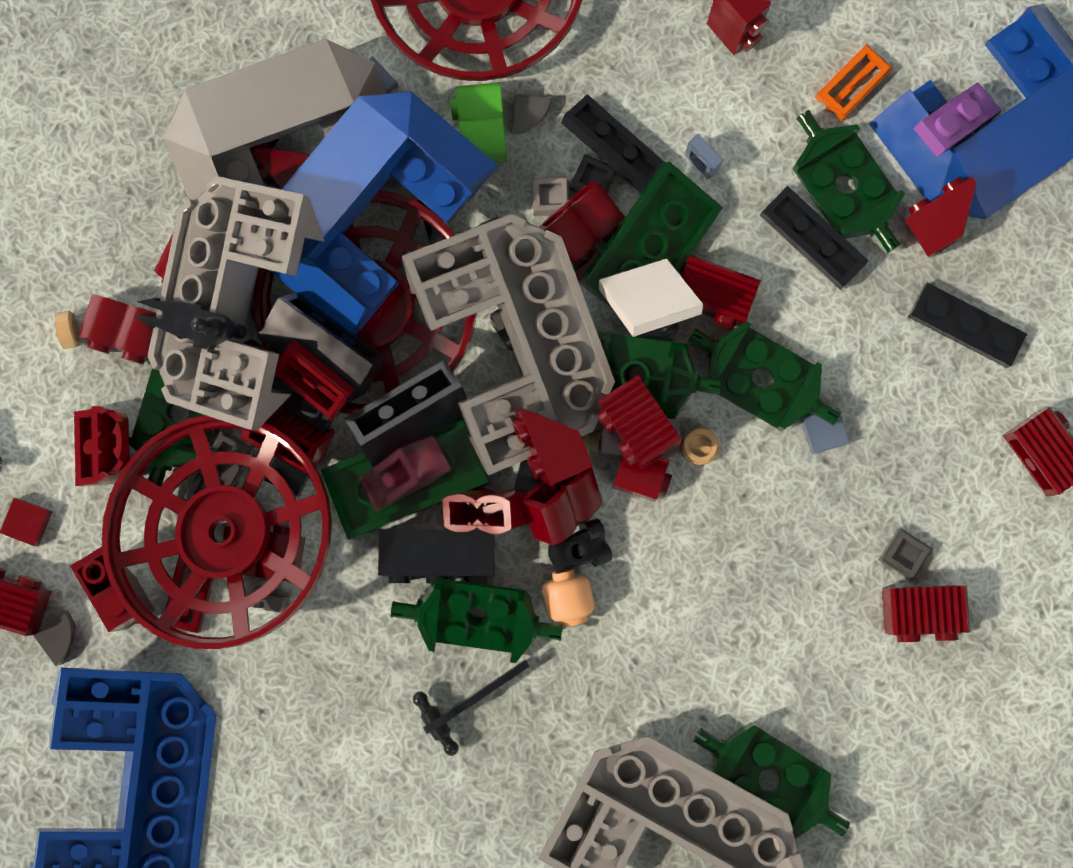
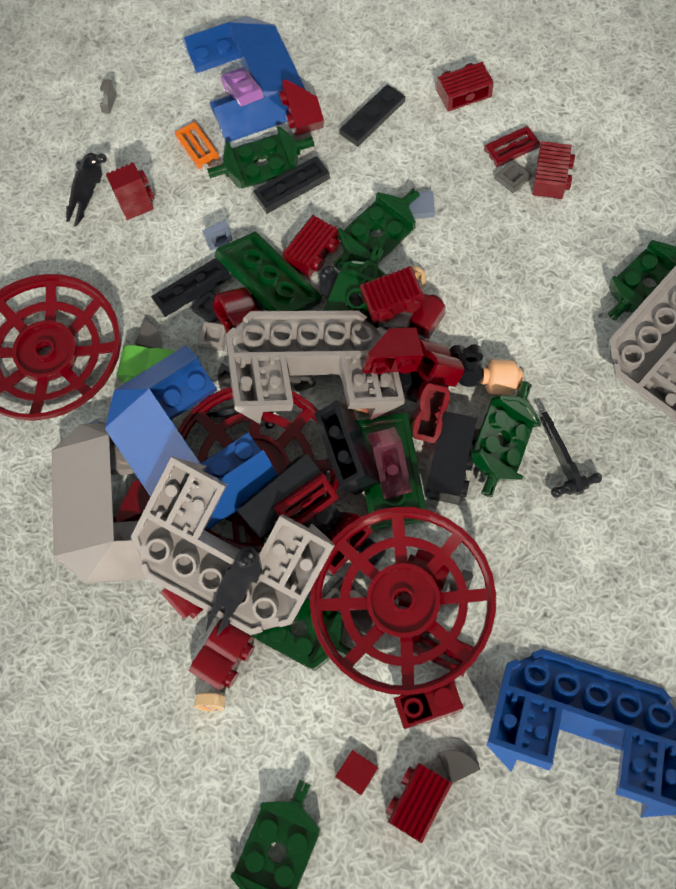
camera: 70 degrees left, 15 degrees down
(100, 445) = (311, 689): dark red slope -> none
(650, 297) = (306, 275): white tile -> none
(937, 520) = (513, 149): none -> dark red tile

